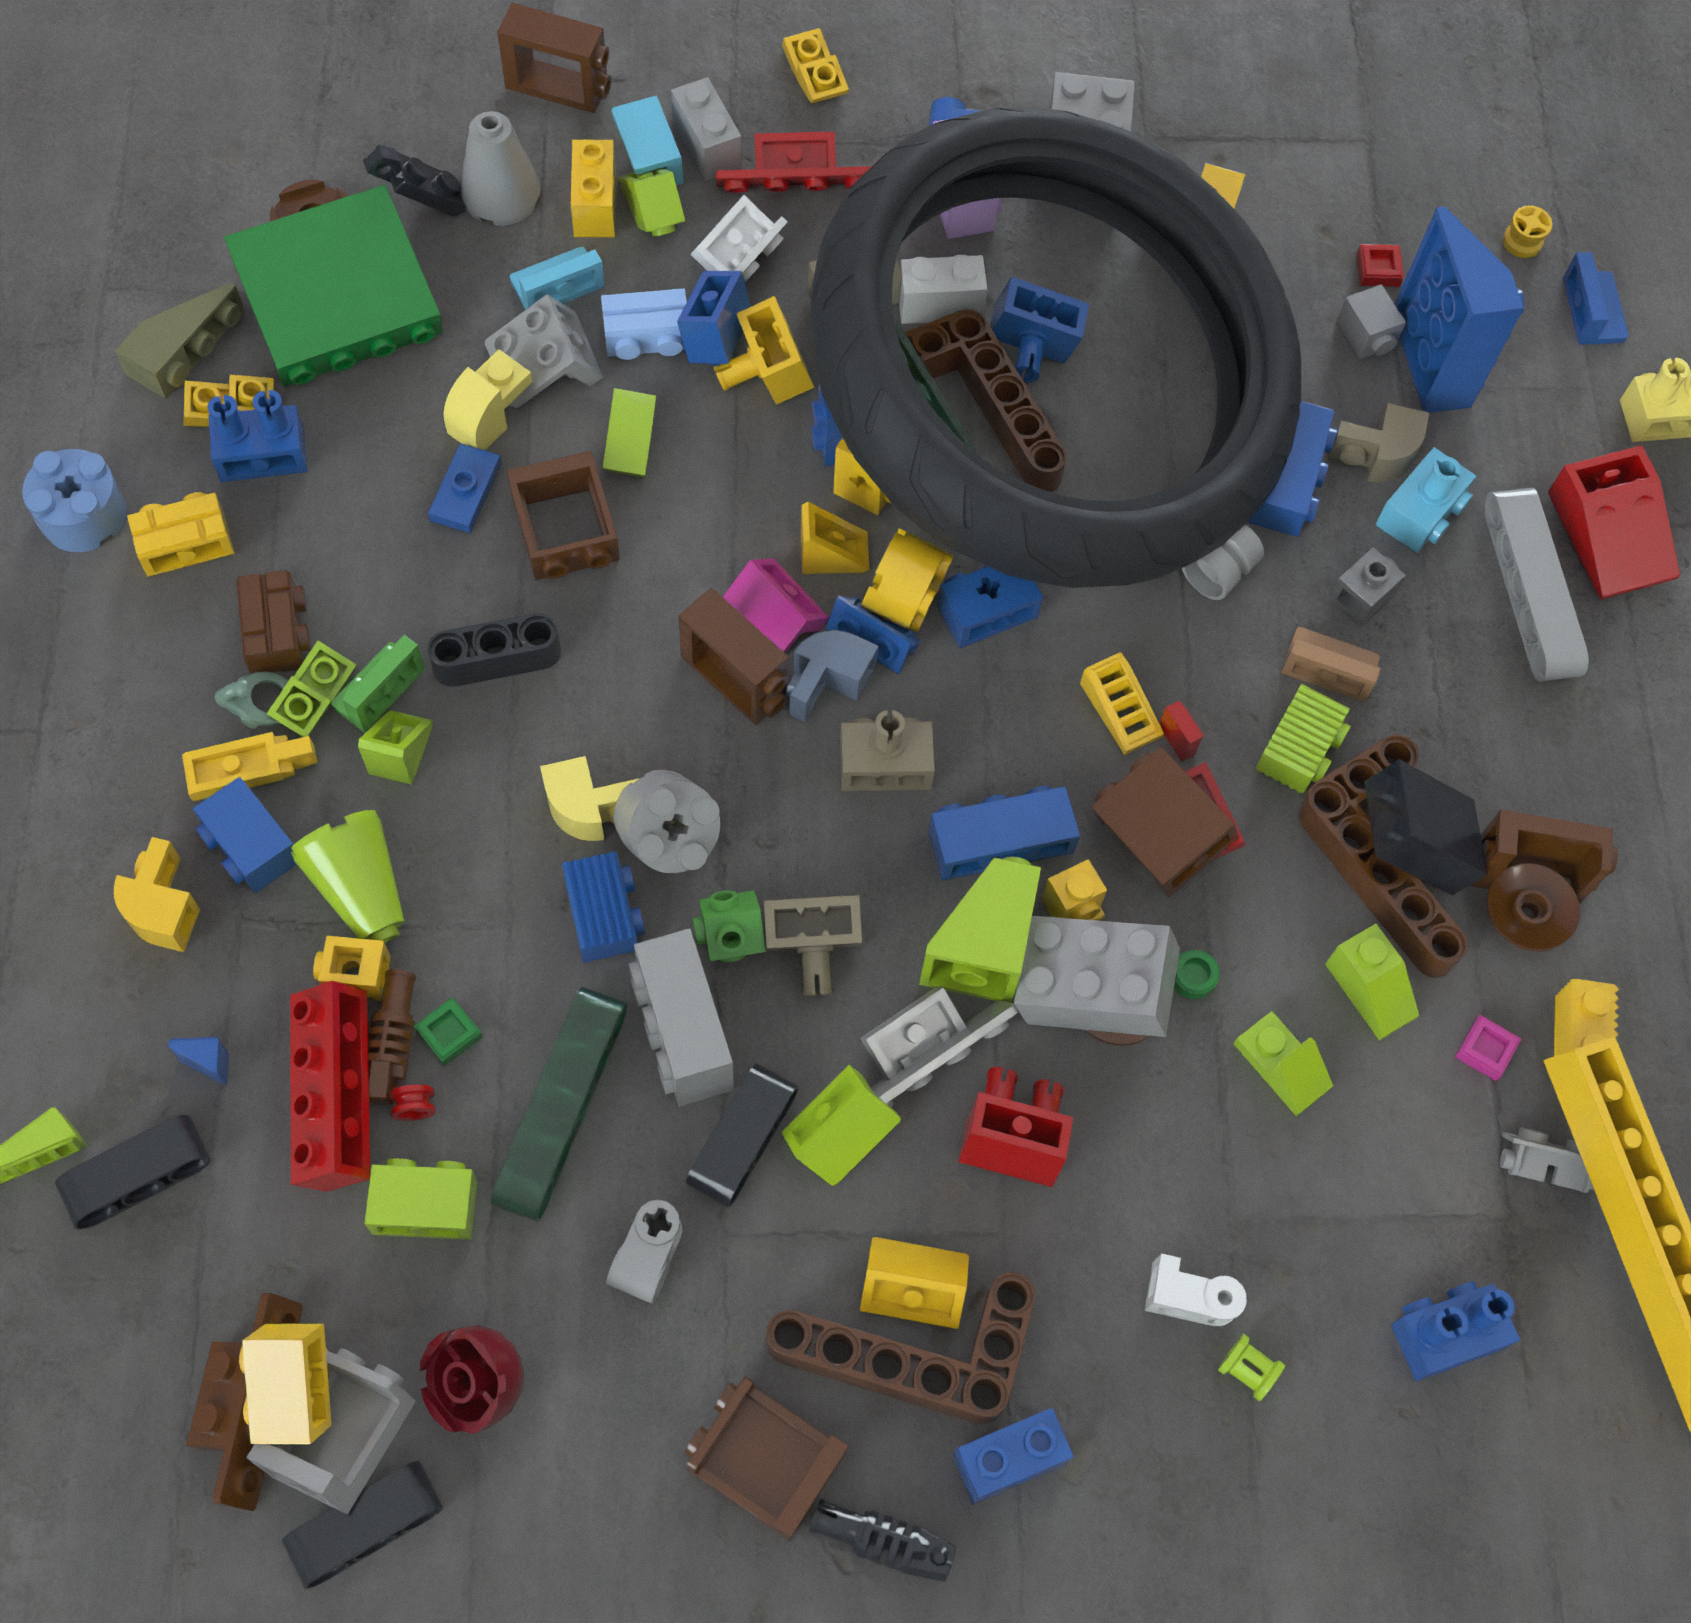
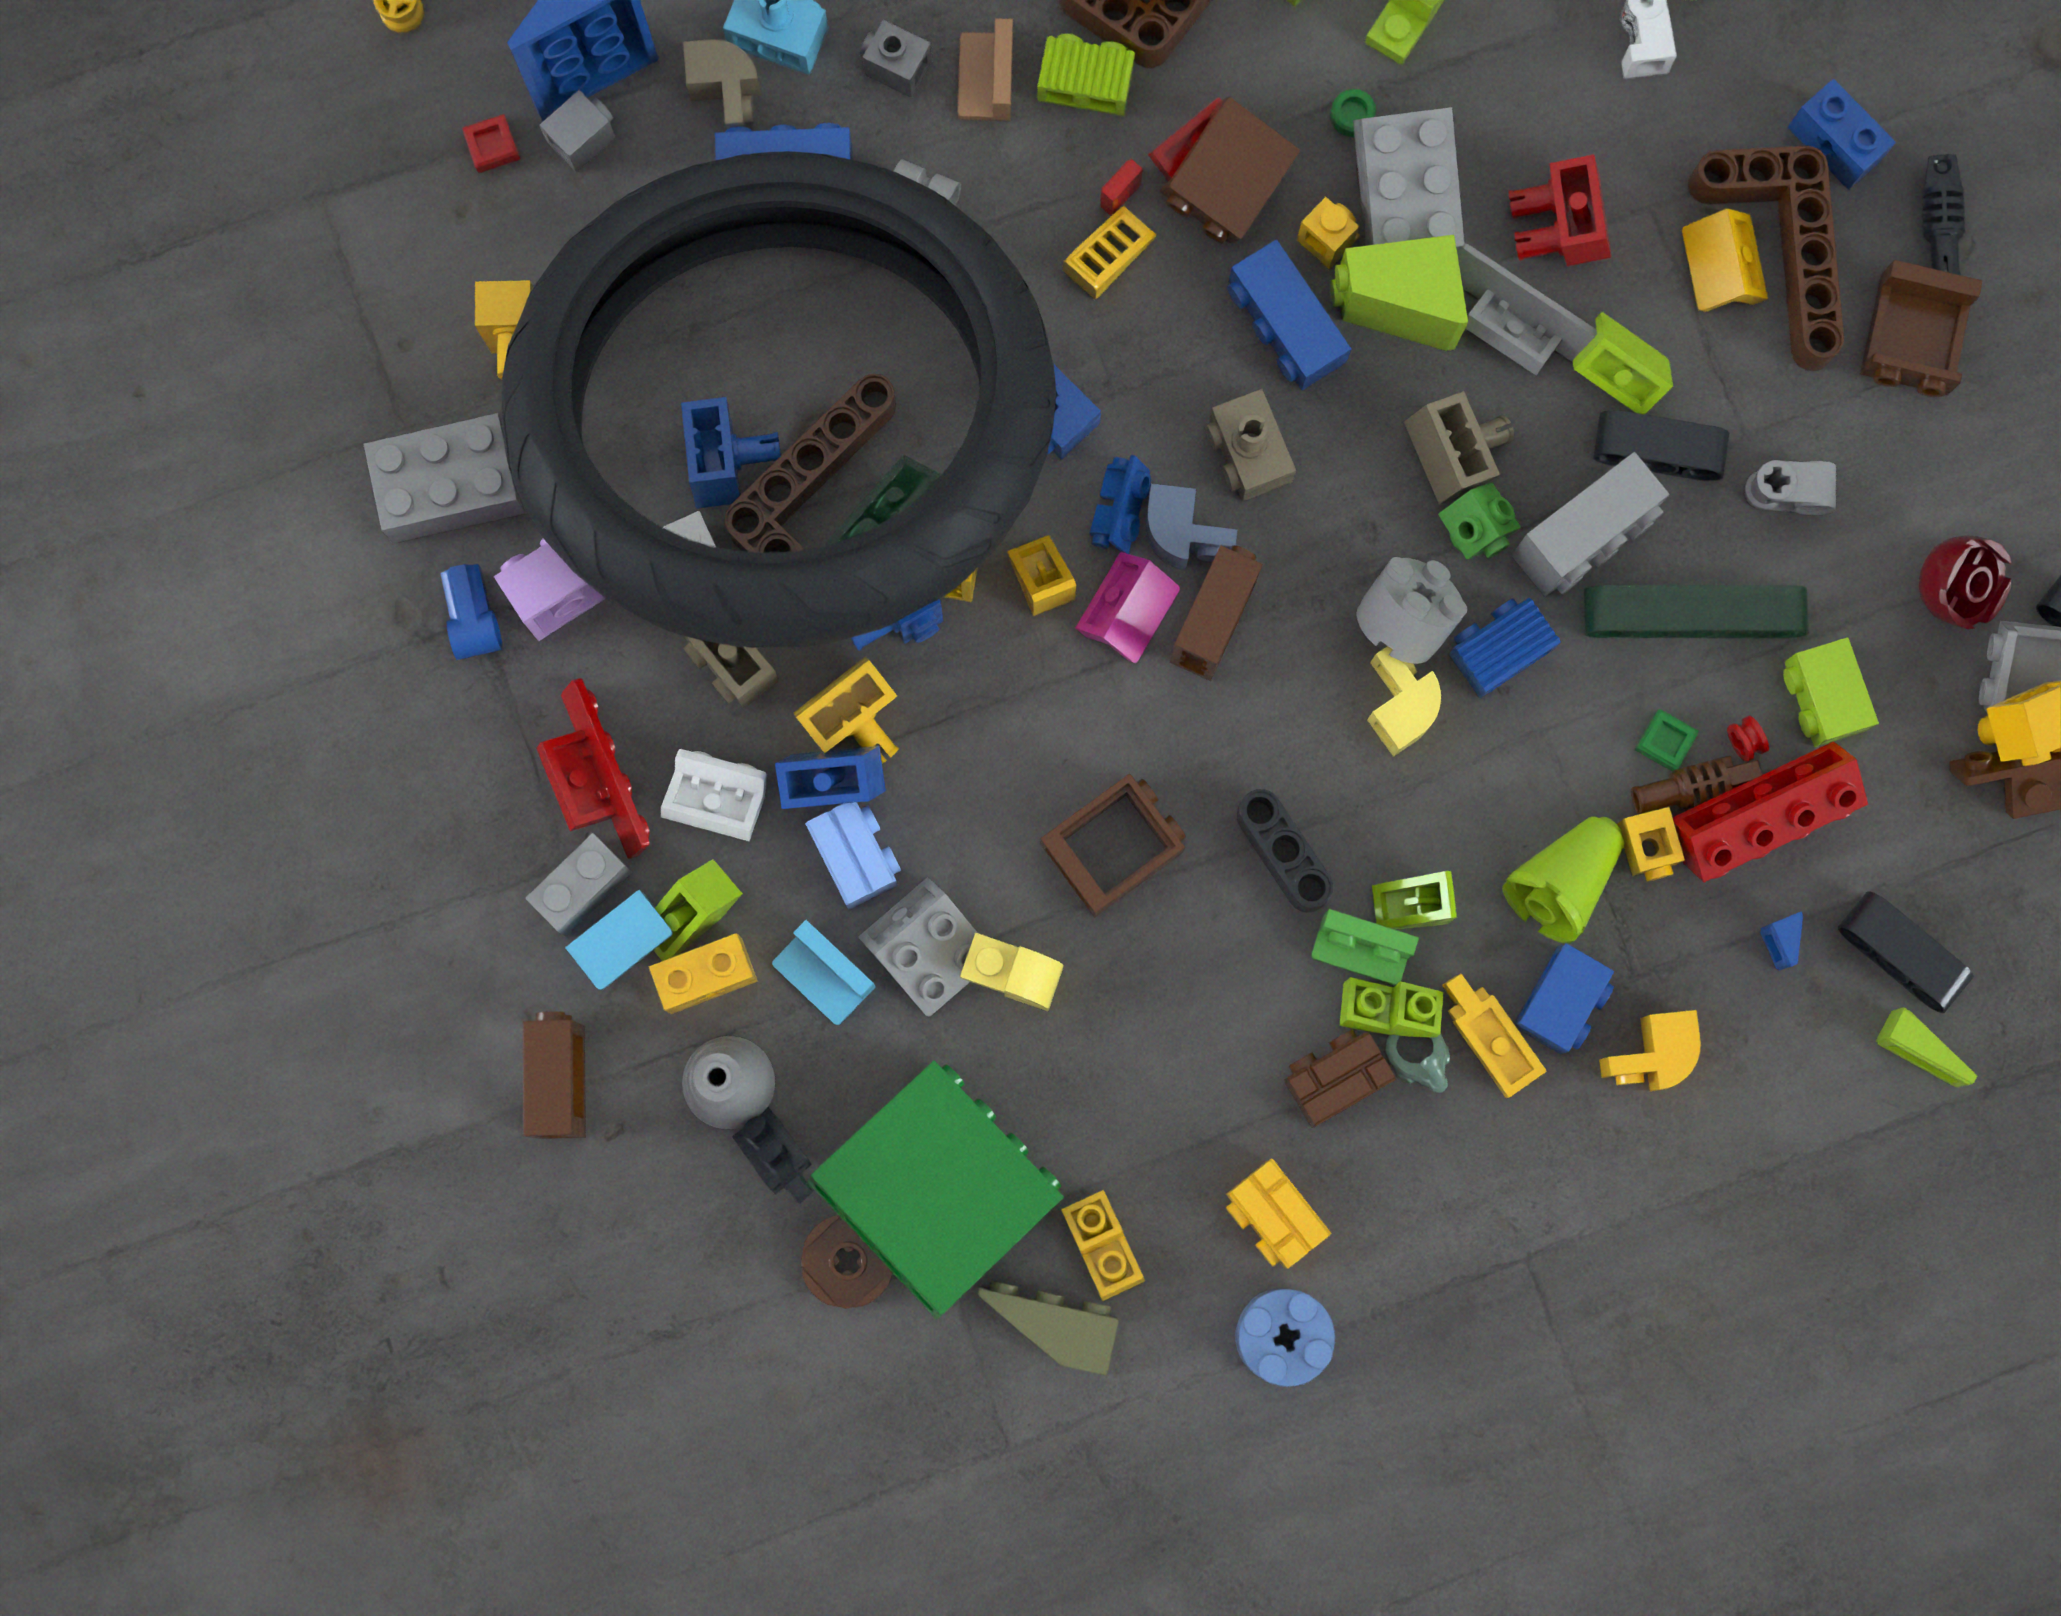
camera: 105 degrees left, 15 degrees up
(257, 440) = (1145, 1187): blue brick -> none
(464, 488) = (1110, 961): blue plate -> none
(629, 433) = (989, 818): lime slope -> none
(814, 66) = (440, 806): yellow slope -> none
(907, 580) = (1073, 484): yellow brick -> none

